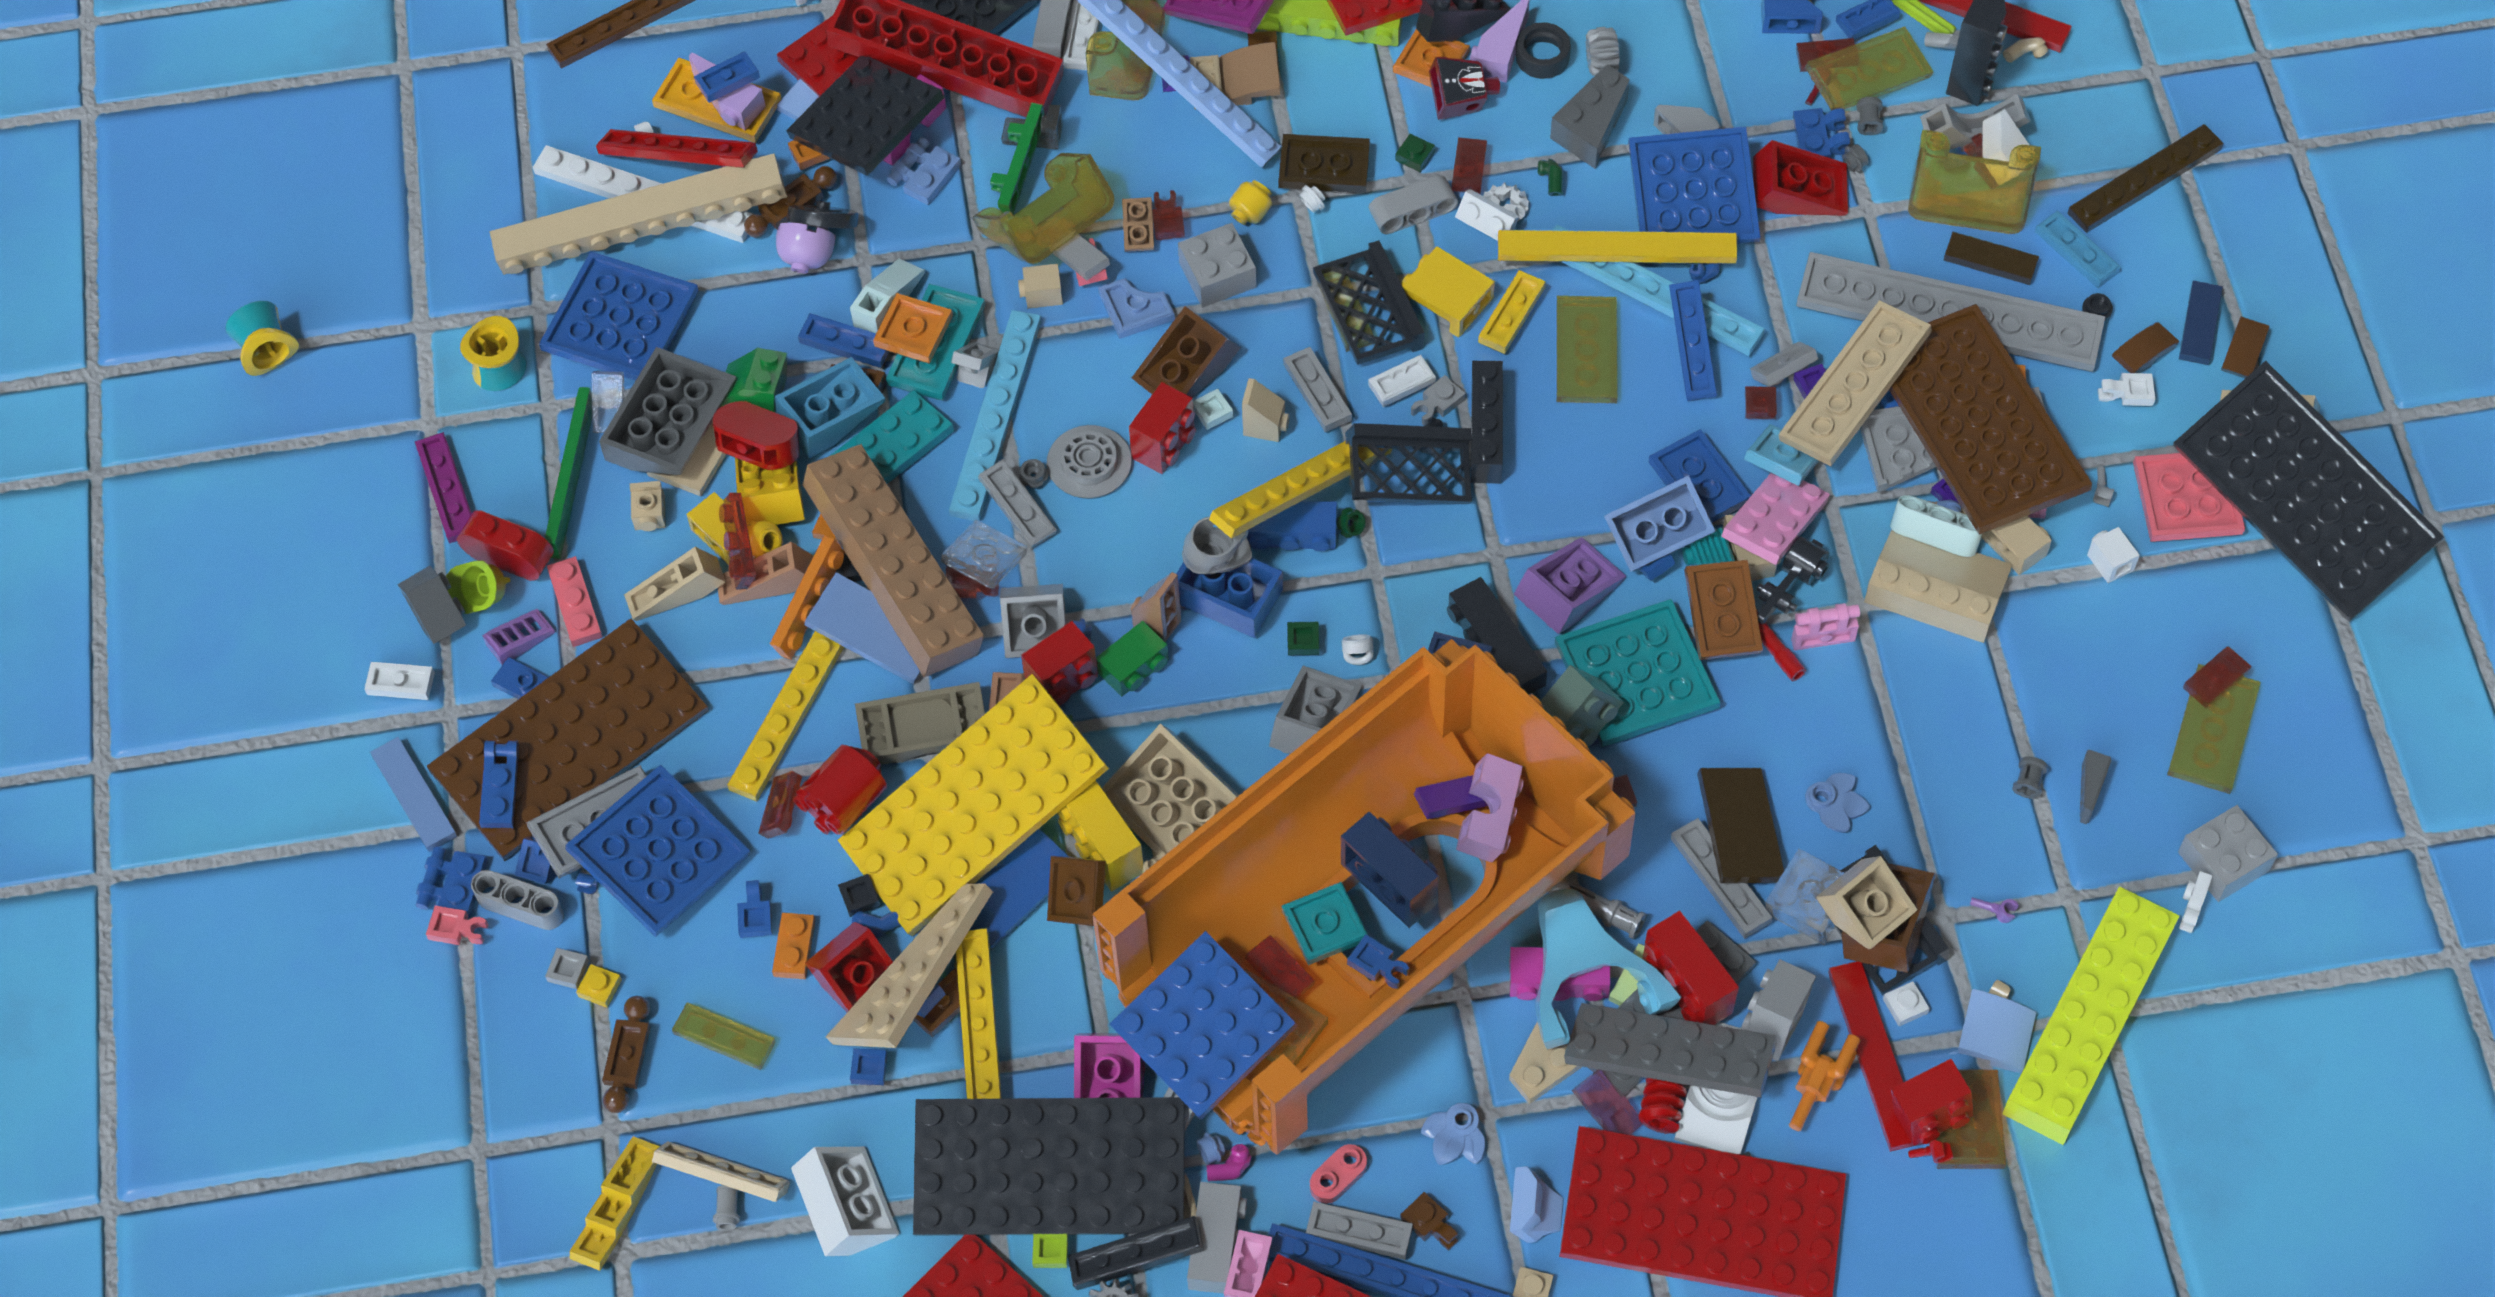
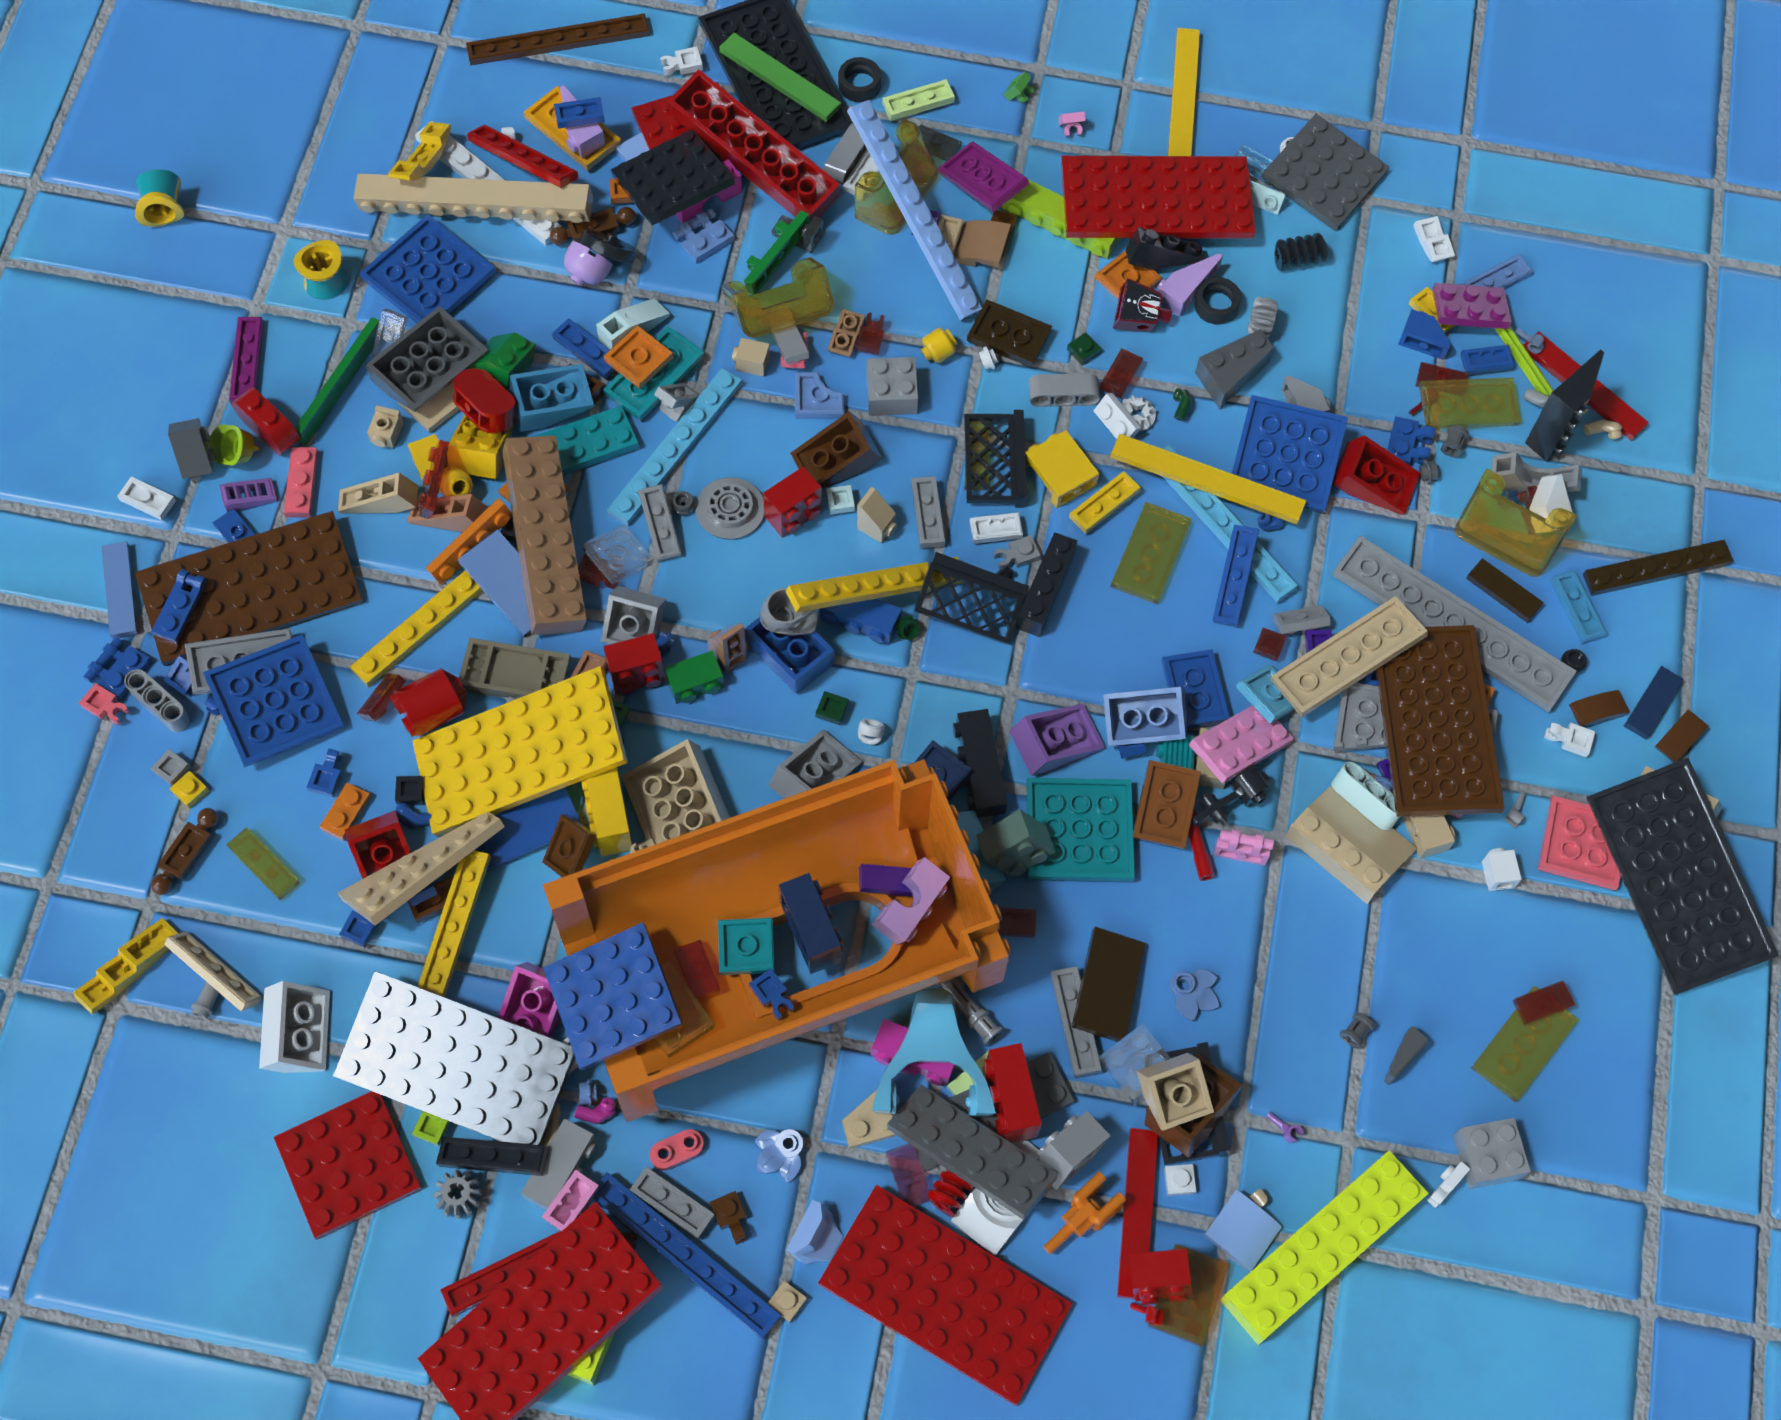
camera: 15 degrees right, 5 degrees up
(560, 182) = (426, 155): none -> yellow slope

